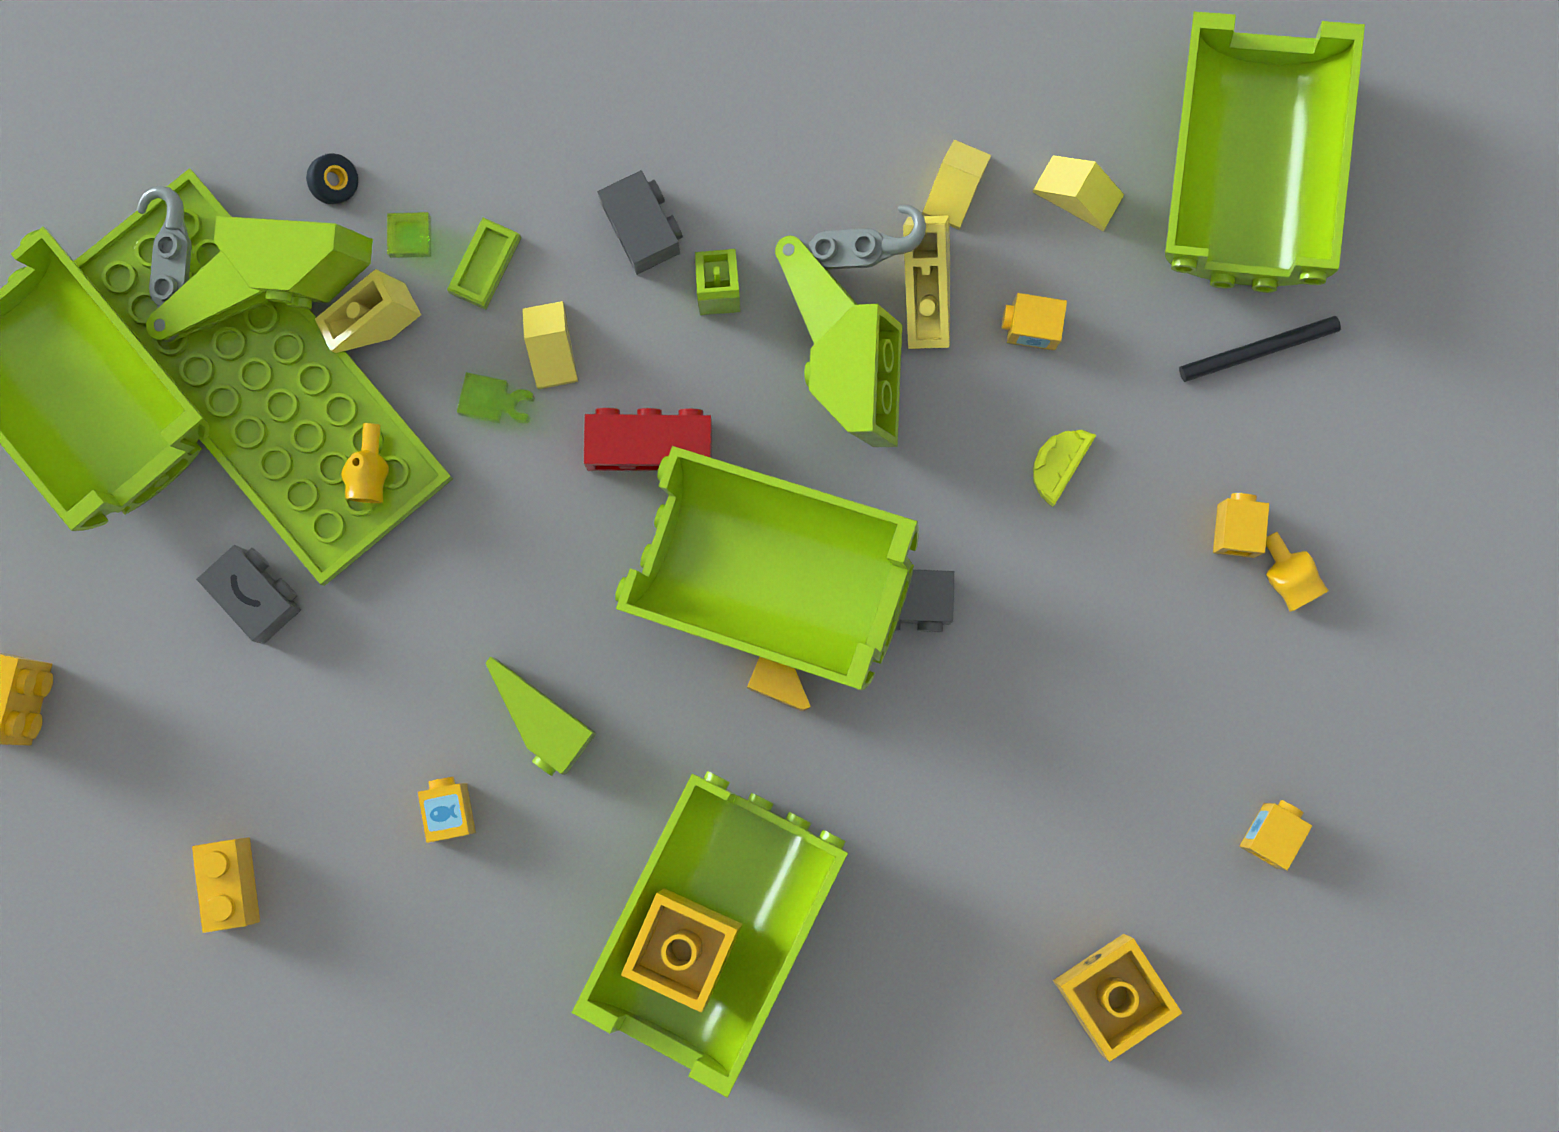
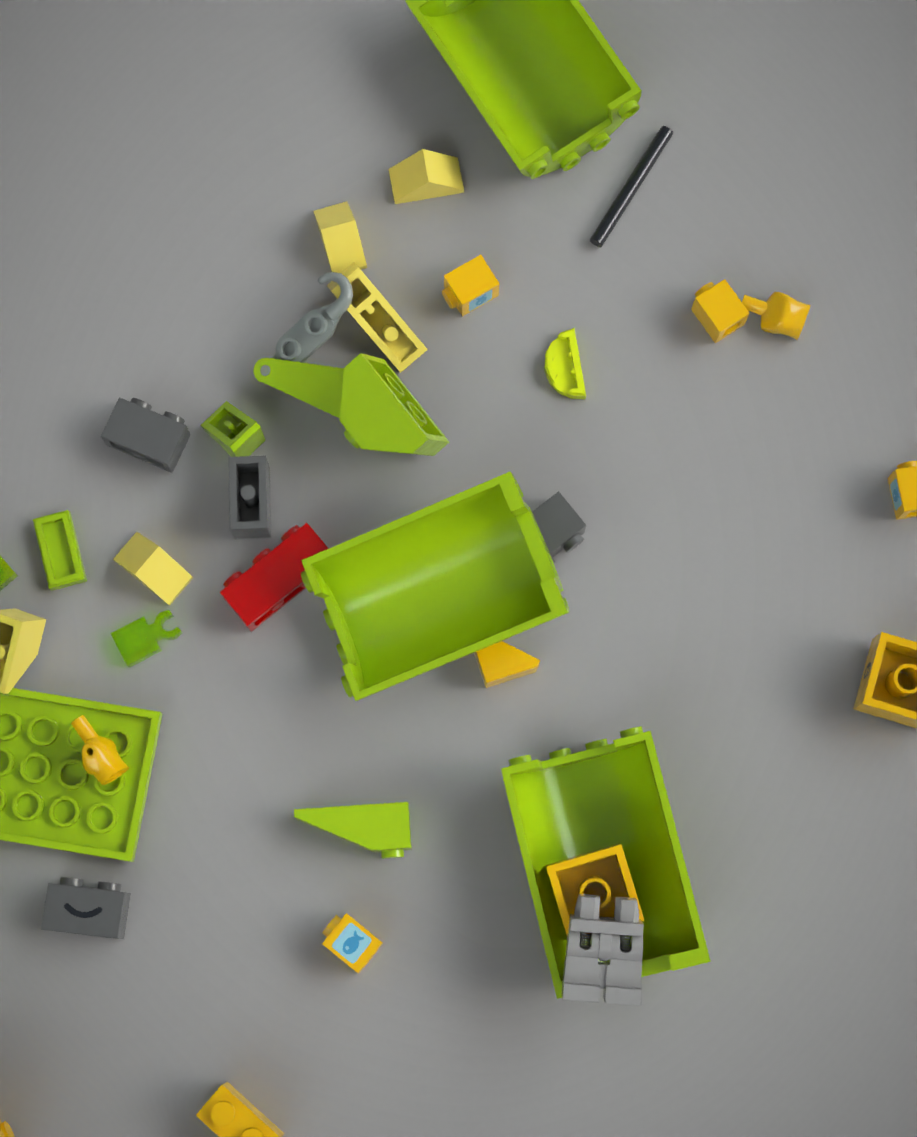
camera: 40 degrees left, 5 degrees down
(634, 1015) = (622, 974): none -> light grey hips
(681, 351) = (249, 497): none -> dark grey brick

